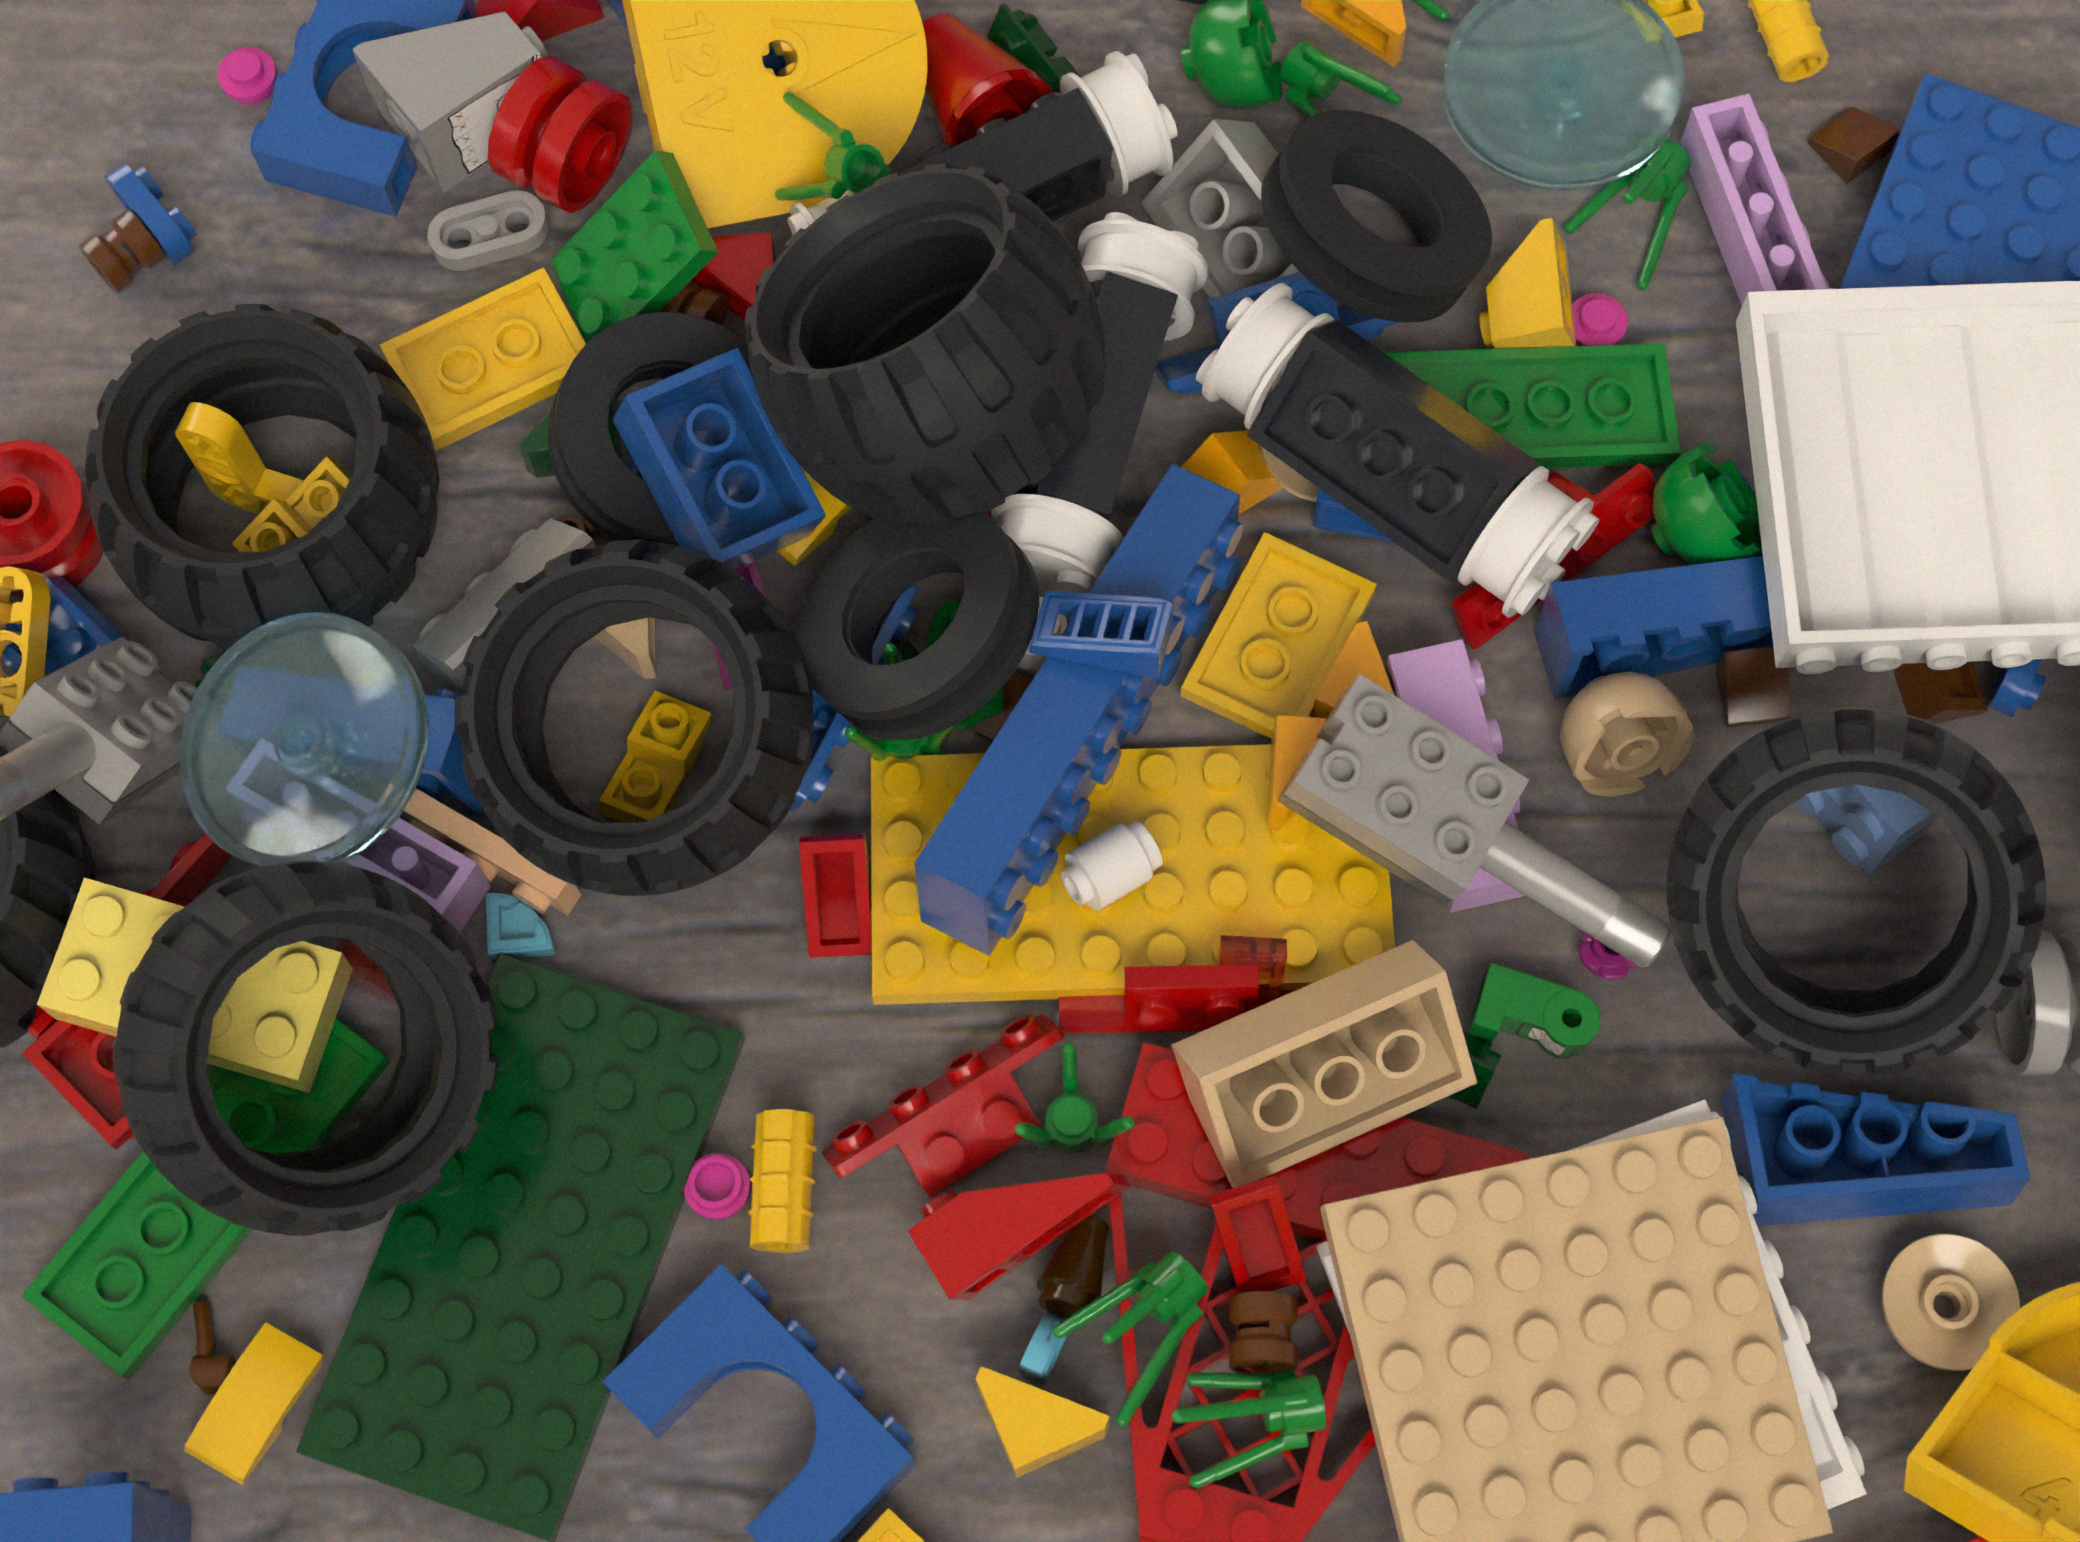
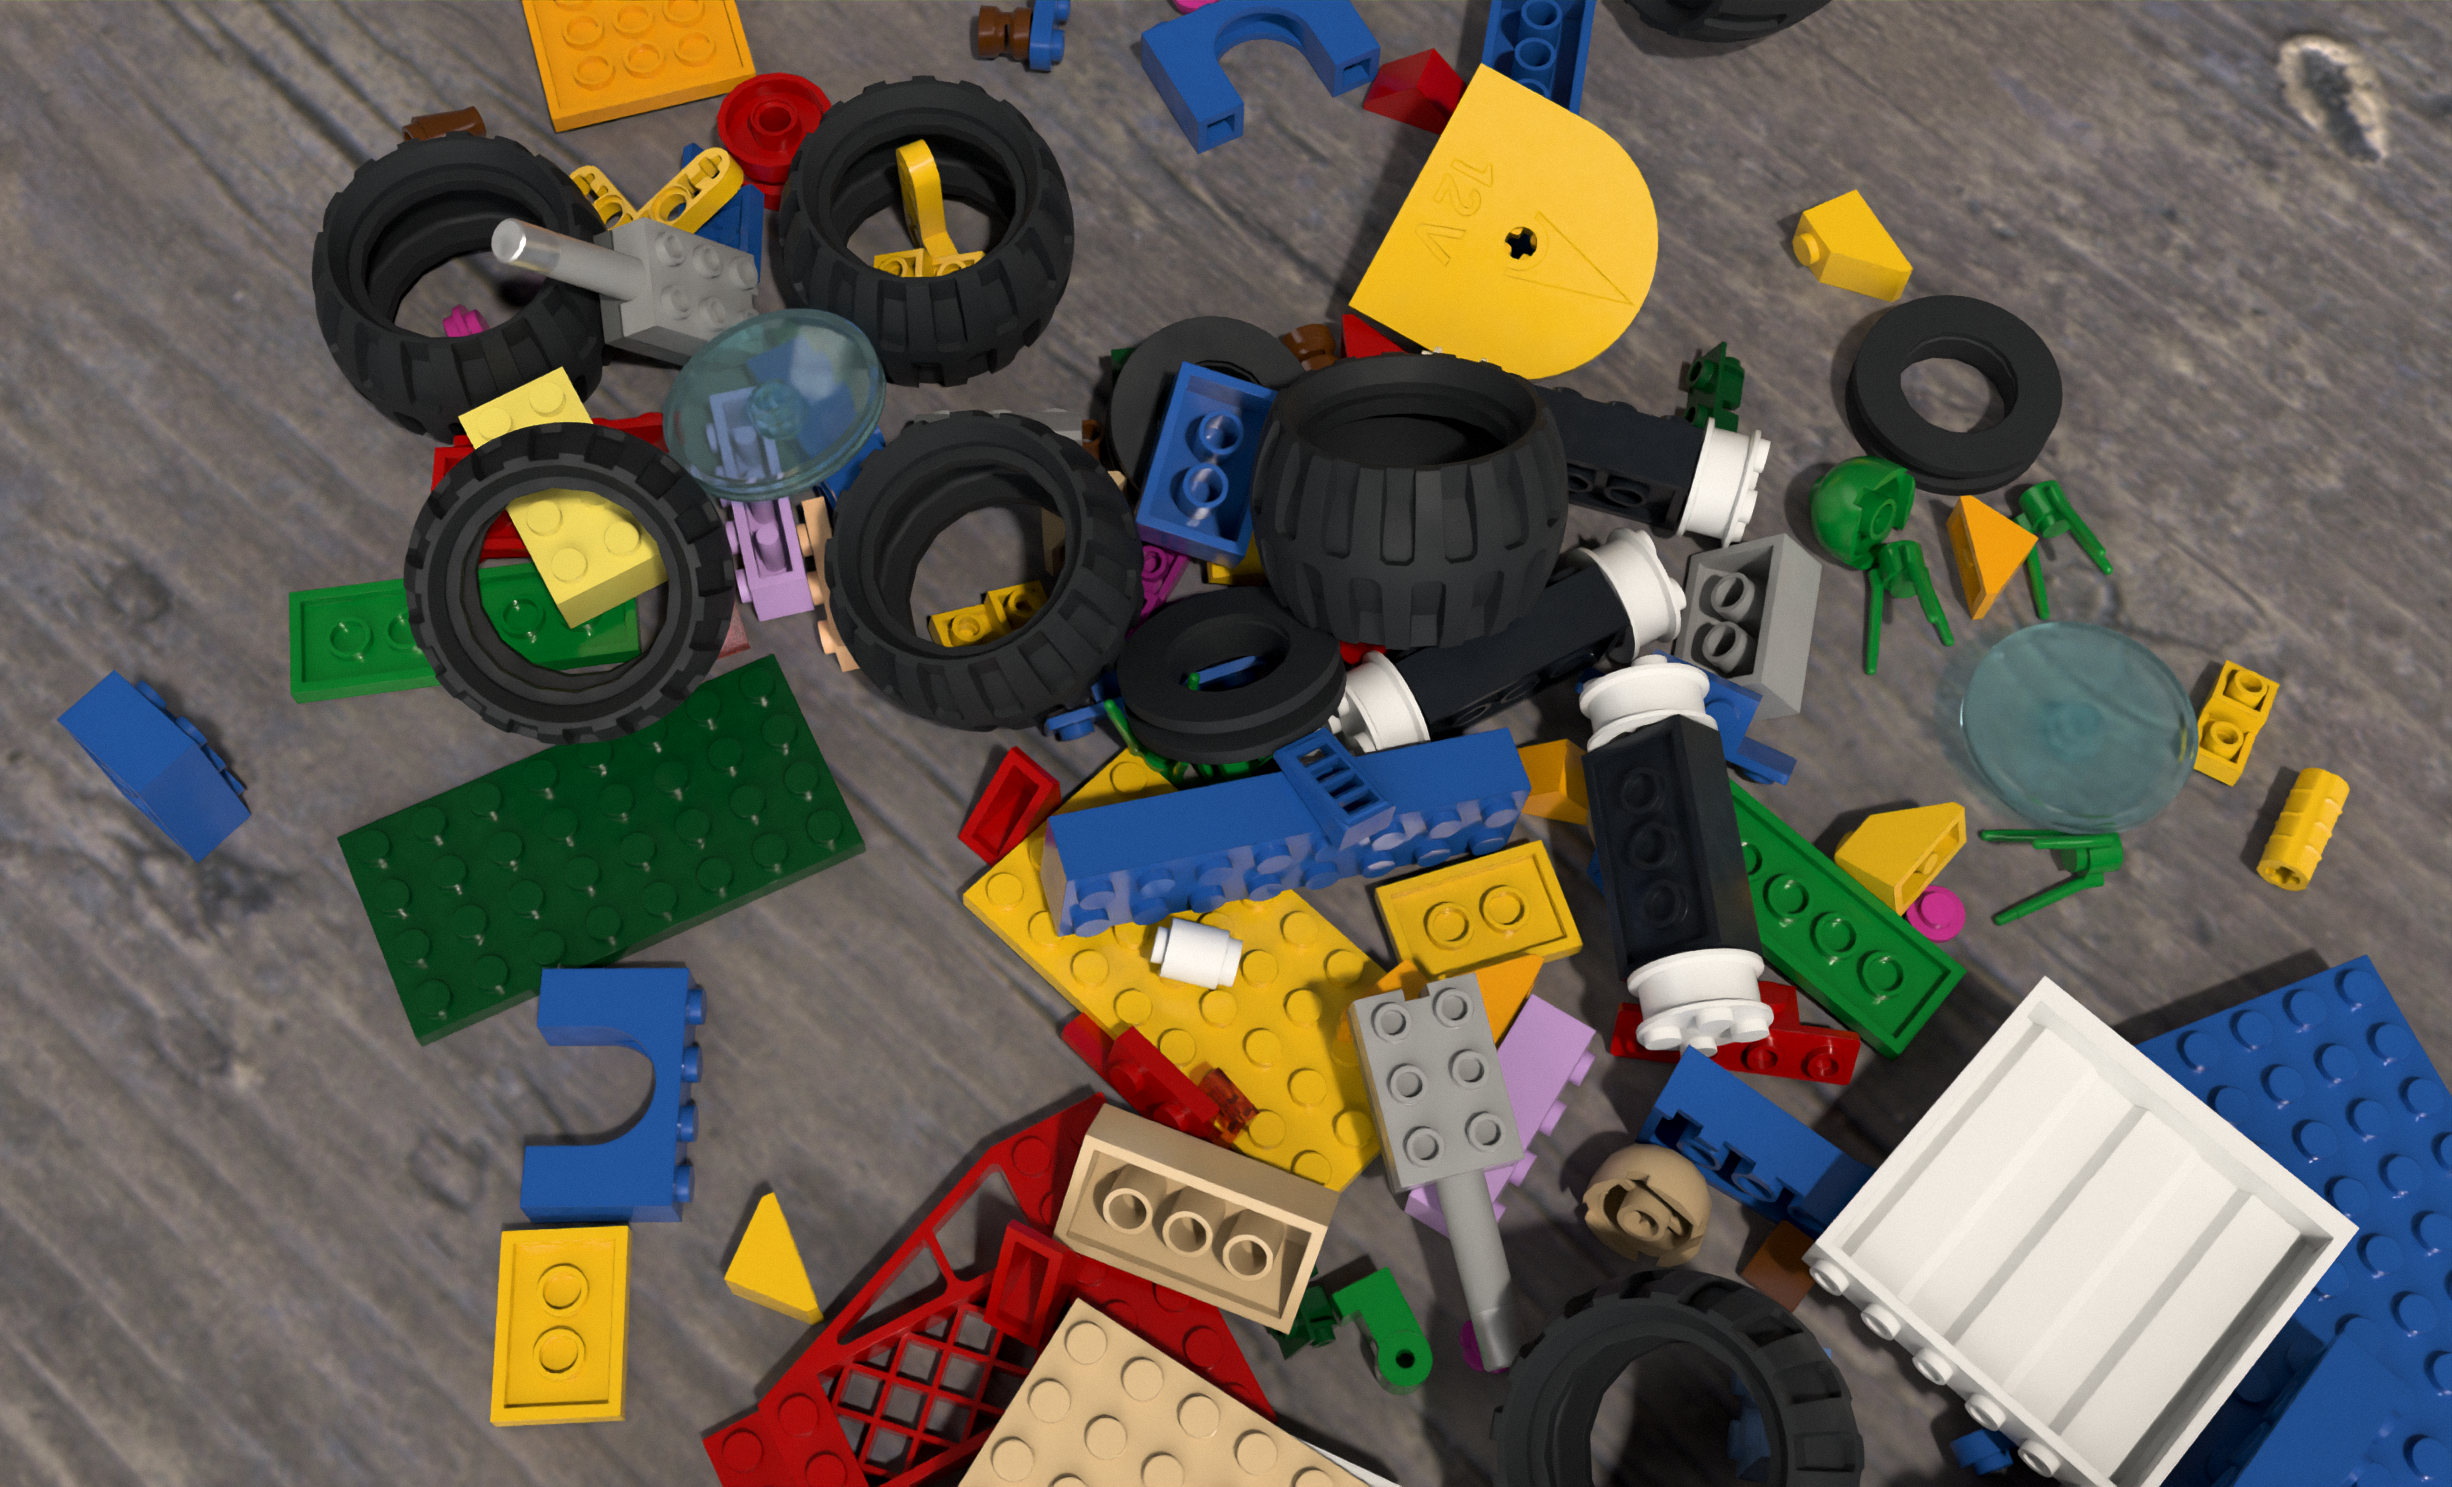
camera: 40 degrees right, 5 degrees down
(207, 1368) = (344, 739): reddish brown hand -> none
(252, 1403) = (344, 782): yellow slope -> none
(447, 87) = (1308, 105): light grey slope -> none
(487, 357) = (1151, 280): yellow plate -> none
(488, 227) = (1242, 209): light grey plate -> none
(515, 929) = (800, 649): medium azure tile -> none
(559, 134) = (1341, 181): red wheel -> none
(635, 248) = (1312, 289): green plate -> none
(717, 1186) = (747, 923): dark pink plate -> none
(782, 1181) = (787, 958): yellow axle -> none
(847, 164) = (1491, 340): green plant -> none
(955, 1119) = (934, 1026): red bracket -> none
(973, 79) = (1652, 368): red cone -> none
(991, 1231) = (871, 1116): red slope -> none
(1042, 1350) = (834, 1225): medium azure tile -> none
(1072, 1117) = (1004, 1096): green plant -> none
(1075, 1269) = (905, 1196): dark brown cone -> none
(1164, 1292) = (936, 1262): green plant -> none
(1263, 1332) = (971, 1354): reddish brown wheel -> none
(1285, 1402) = (933, 1418): green plant -> none
(1351, 260) = (1781, 716): black tyre -> none
(1705, 510) = (1872, 1105): green cylinder -> none
(1748, 200) = (2136, 927): lavender brick -> none
(1854, 142) = (2266, 961): reddish brown slope -> none
(1940, 693) = (1924, 1405): reddish brown slope -> none

